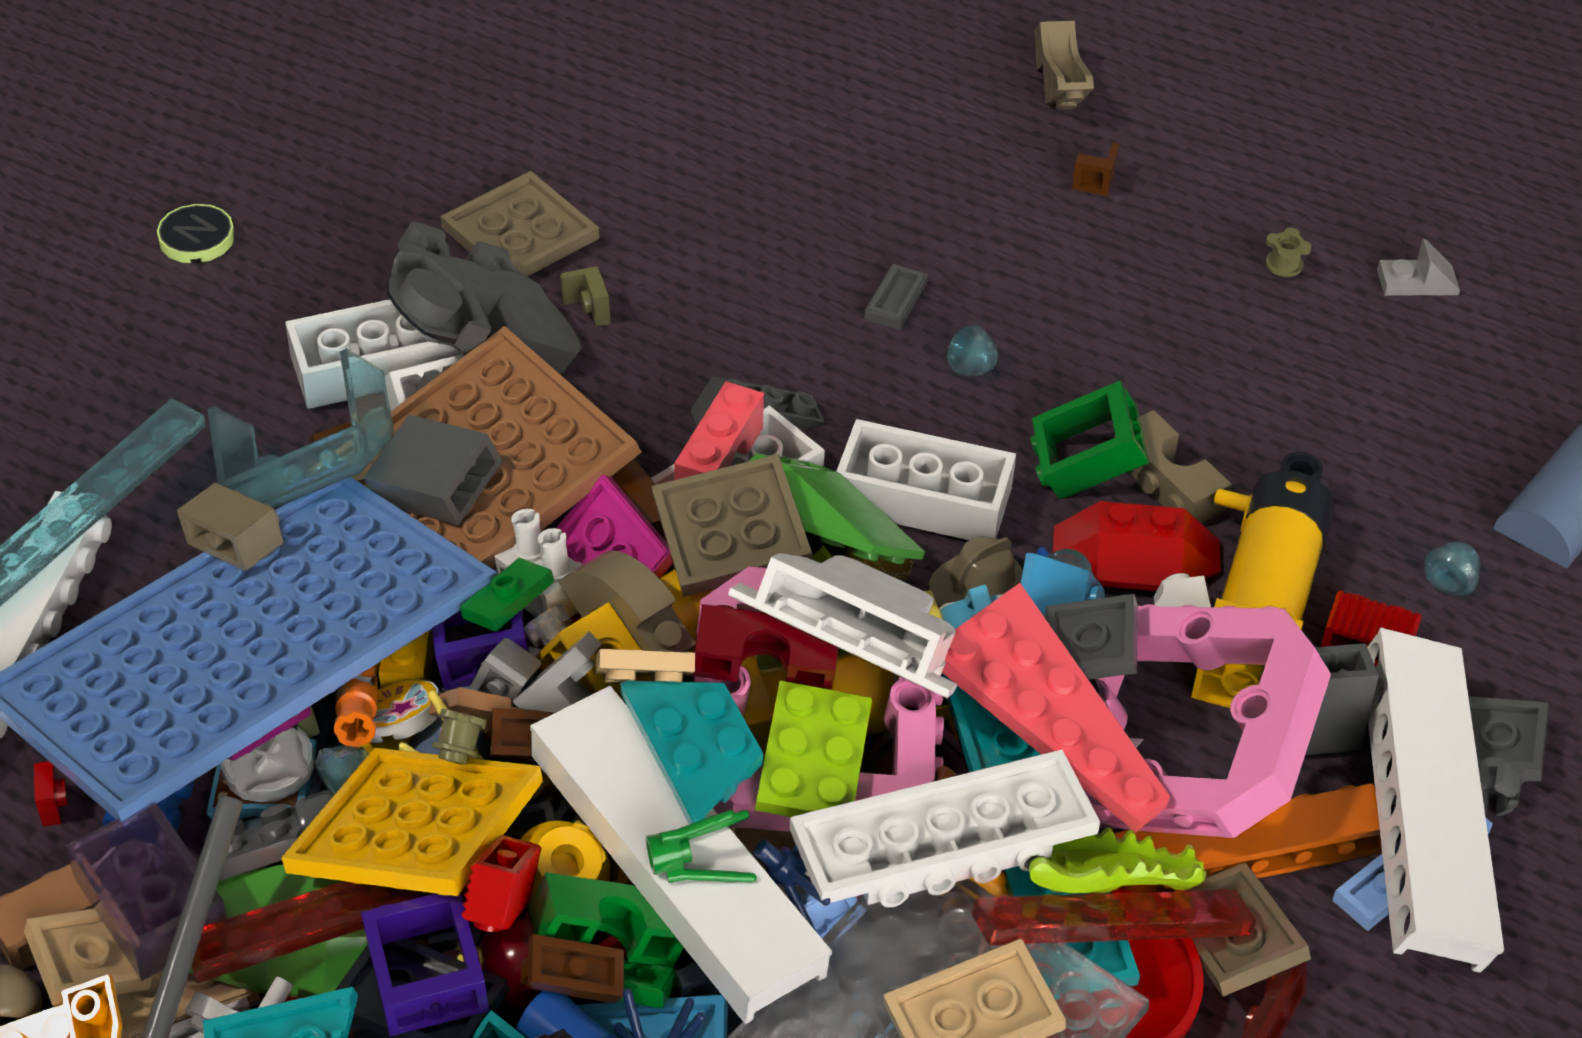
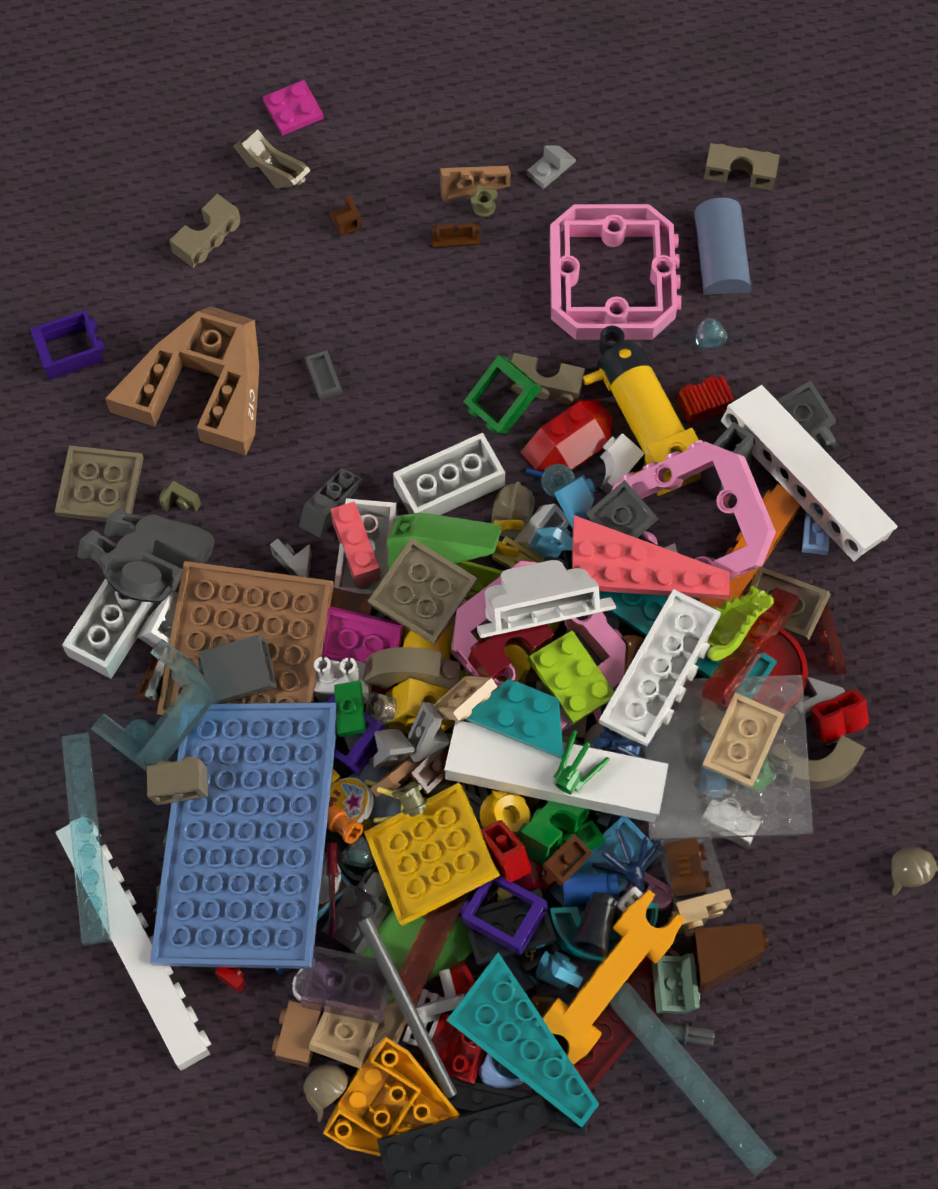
camera: 40 degrees left, 20 degrees up
(287, 764) = (332, 871): none -> dark red piece
(647, 69) = (63, 327): none -> dark purple window
(655, 441) = (295, 564): none -> light grey slope
(797, 180) = (212, 344): none -> medium nougat piece
(889, 91) = (195, 245): none -> dark tan arch
(936, 579) = (507, 525): none -> yellow cap
(972, 352) = (395, 383): clear light blue cone -> none
(1149, 45) = (293, 107): none -> dark pink plate
(1223, 269) = (455, 235): none -> reddish brown hinge
(1274, 208) = (462, 181): none -> medium nougat wing
(1436, 378) = (628, 221): none -> bright pink panel

